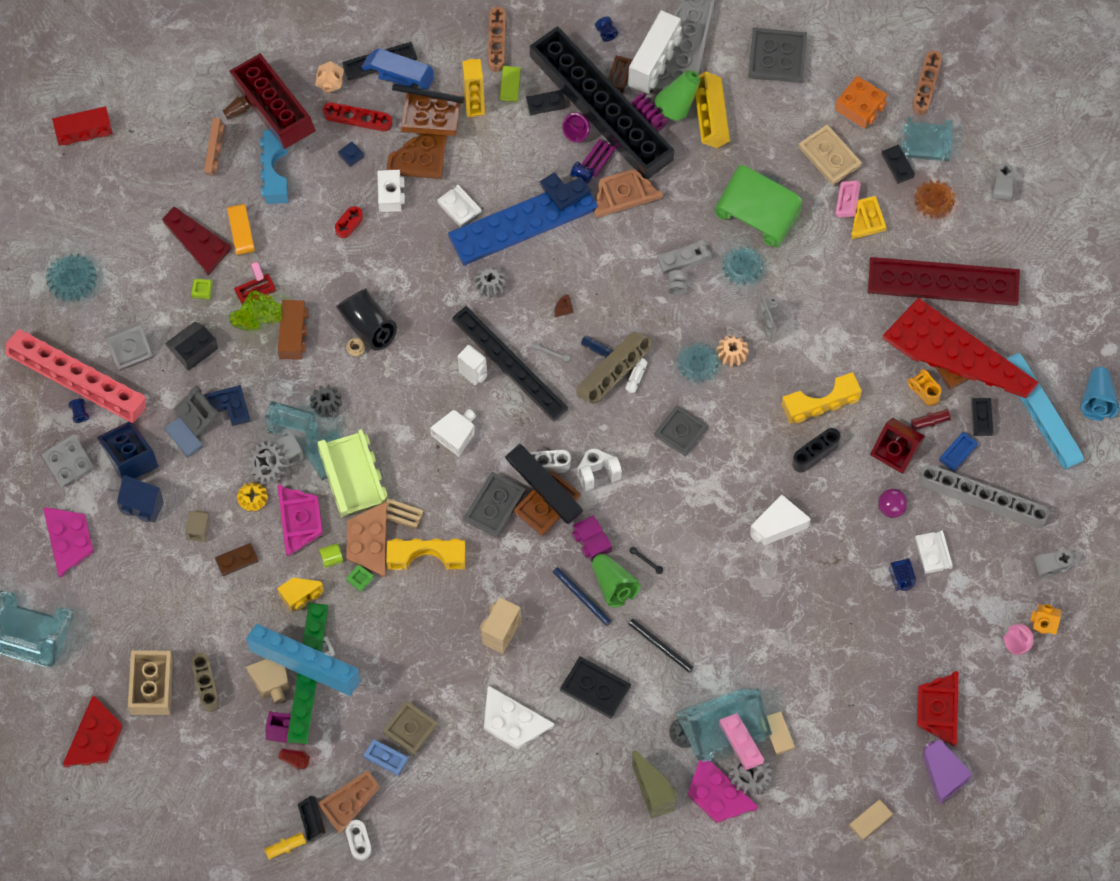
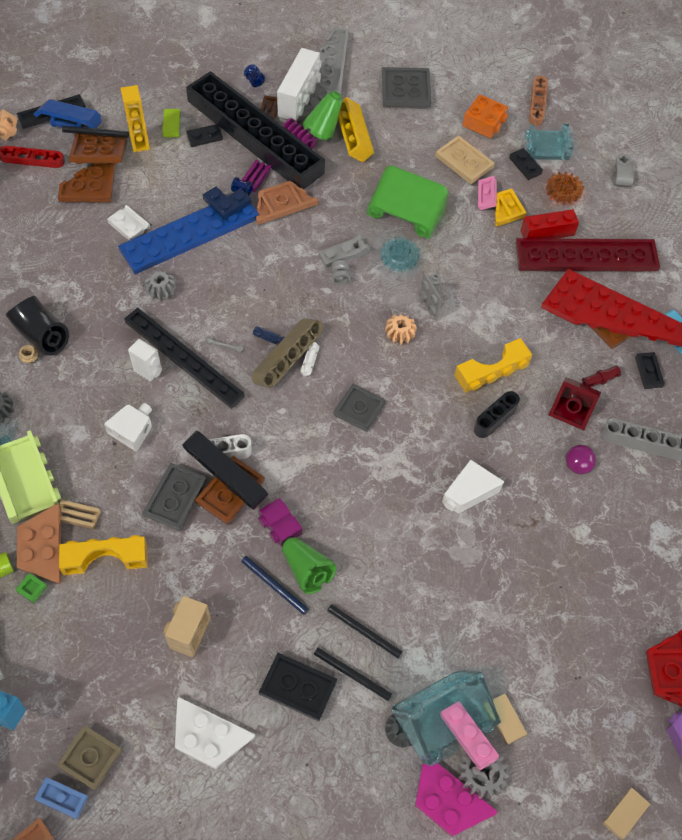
camera: 10 degrees left, 5 degrees down
(351, 154) = (25, 187): dark blue plate -> none
(351, 224) = (21, 243): red beam -> none
(390, 200) = (61, 213): white brick -> none
(496, 39) = (160, 89): nougat beam -> none
(563, 306) = (233, 302): copper tile -> none
(576, 127) = (233, 150): magenta piece -> none
(604, 460) = (269, 451): white piece -> none
(645, 681) = (380, 691): none -> black bar
(654, 786) = (378, 804): olive slope -> none
(658, 569) = (353, 548): black hinge -> none
(688, 360) = (377, 340): clear light blue gear -> none
(902, 574) = (606, 530): clear blue brick -> none
(908, 244) = (550, 225): none -> red brick
(924, 384) = (590, 348): light orange piece -> none
(933, 552) = (630, 505): white plate -> none
(958, 451) = (633, 404): blue tile -> none

